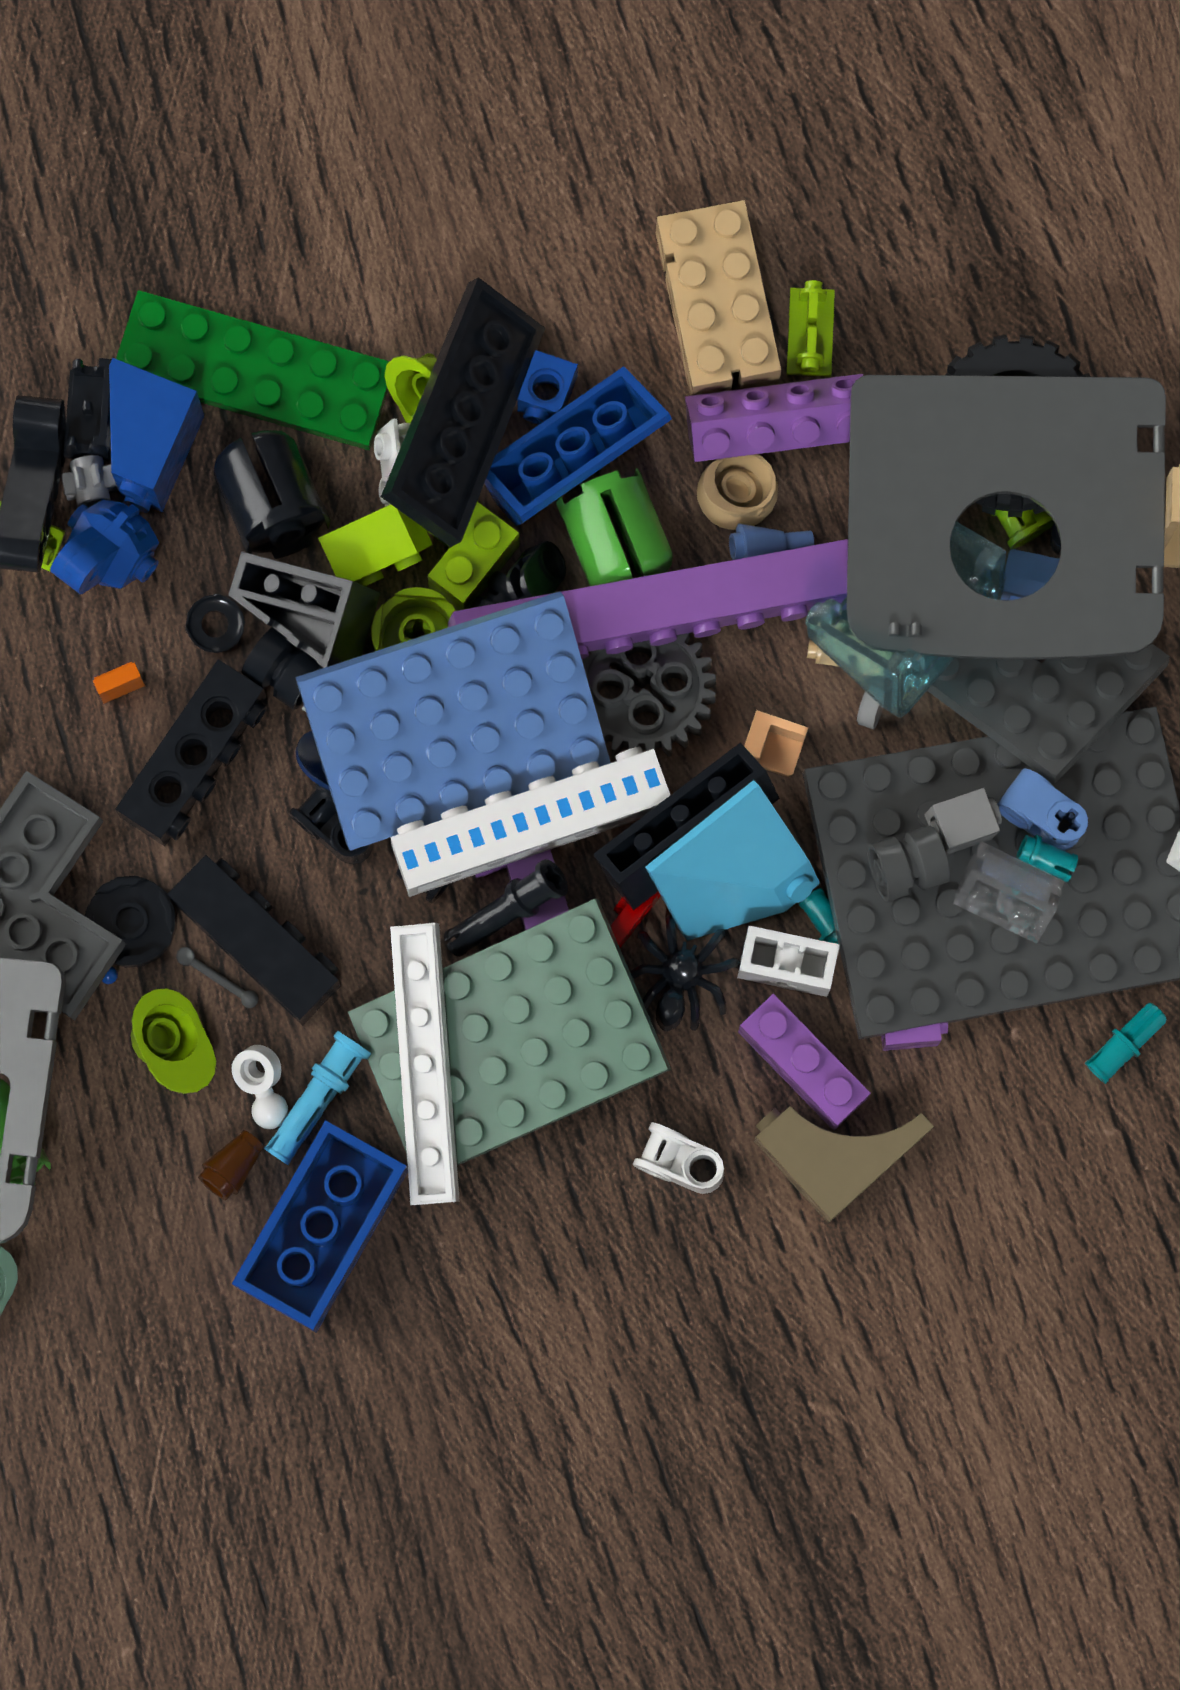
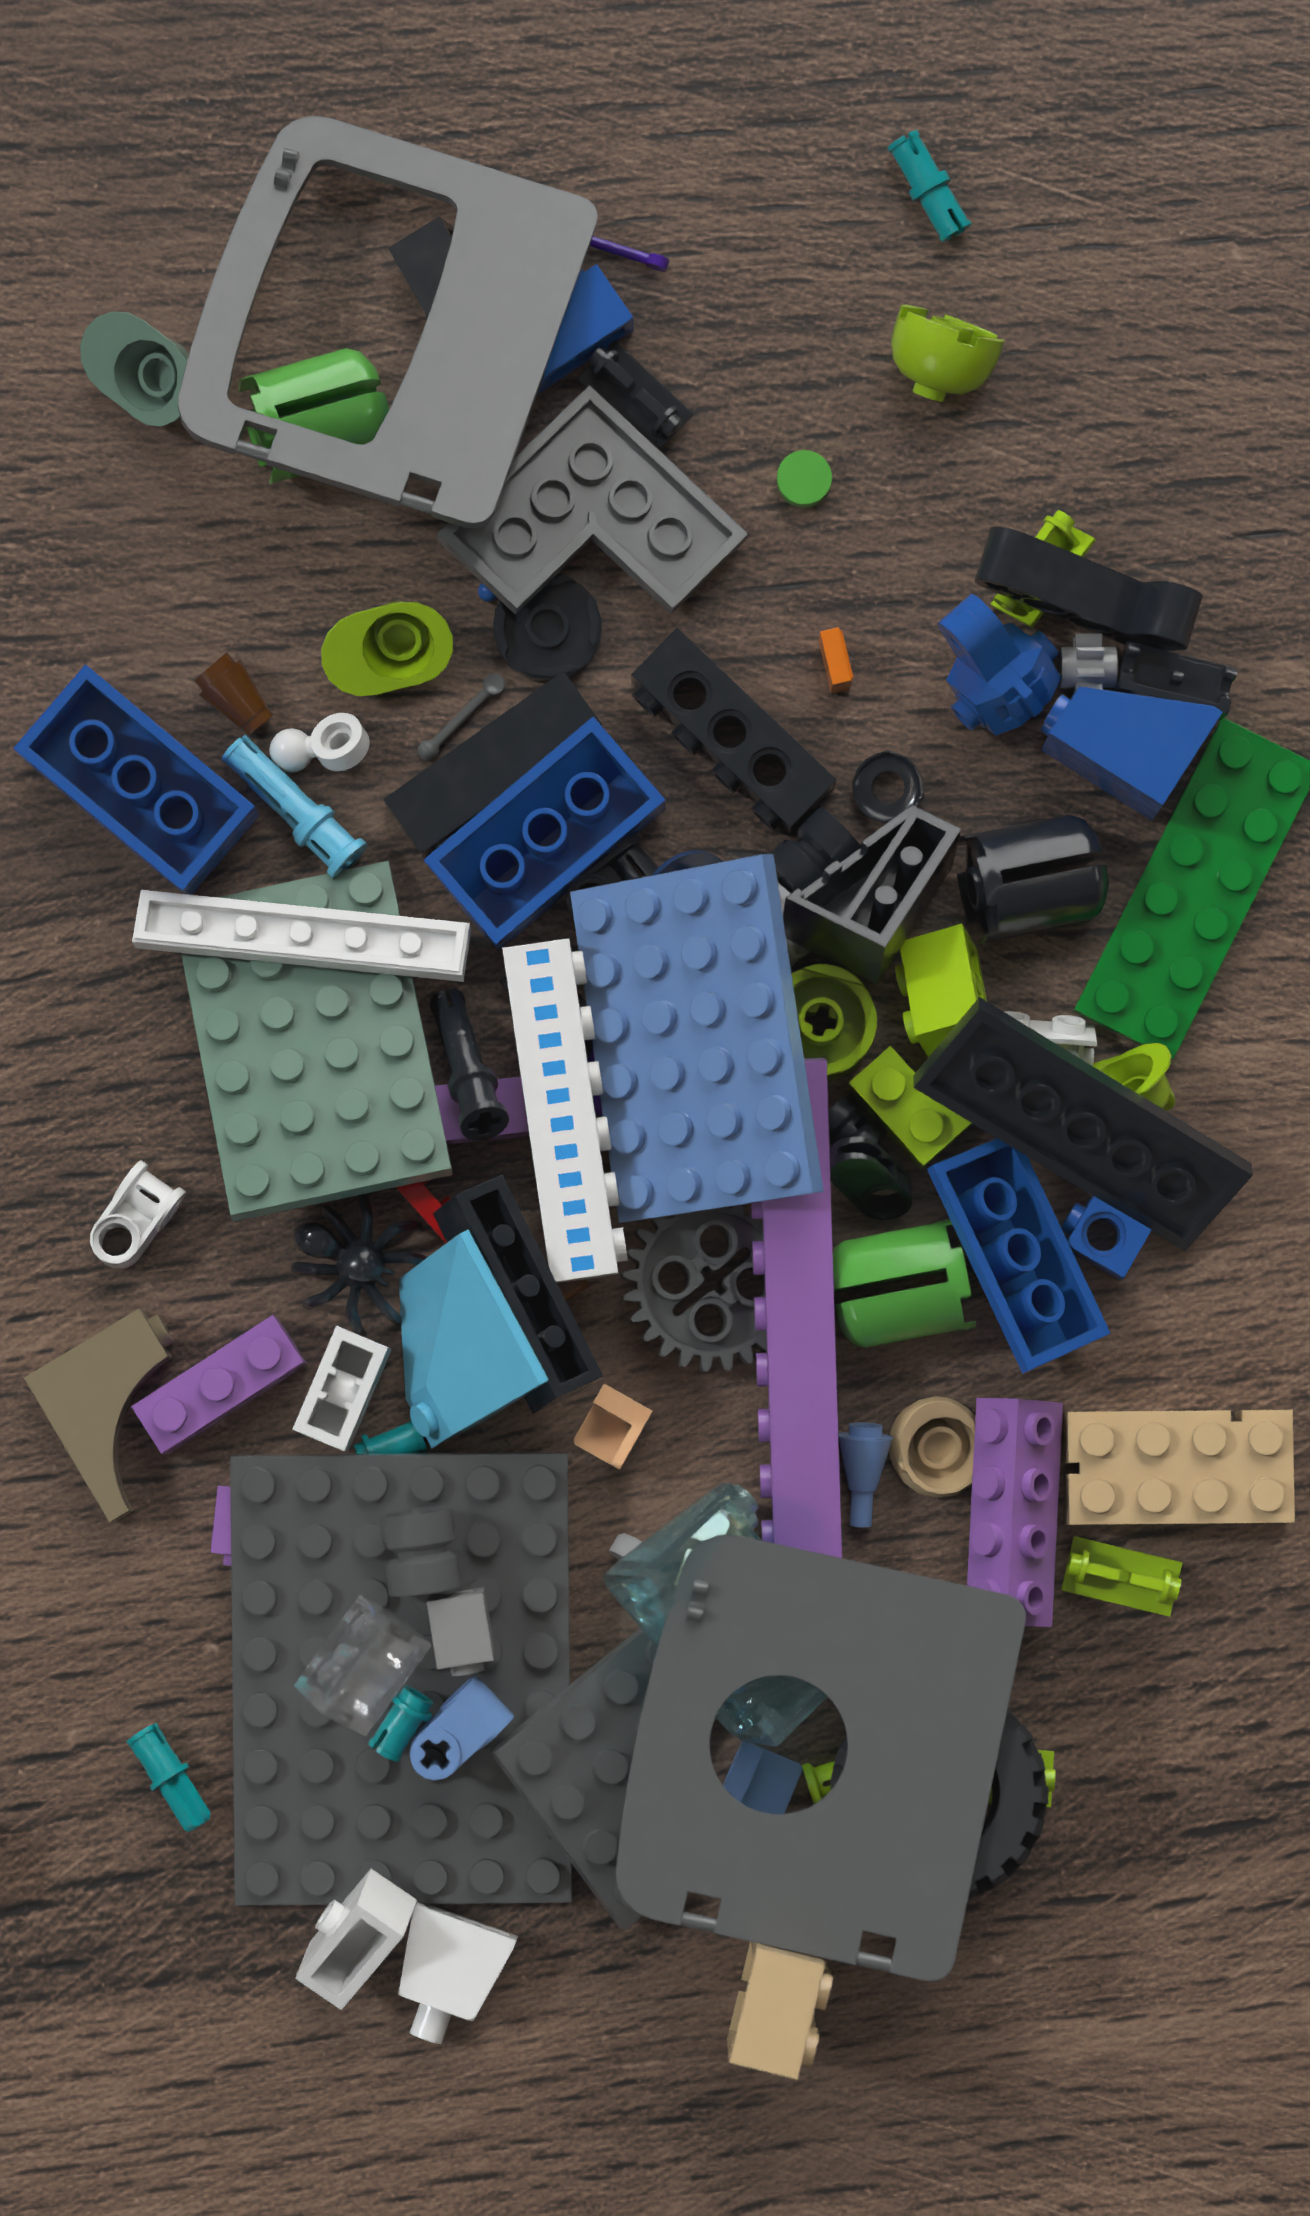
camera: 105 degrees right, 5 degrees up
(304, 882) = (545, 833): none -> blue slope

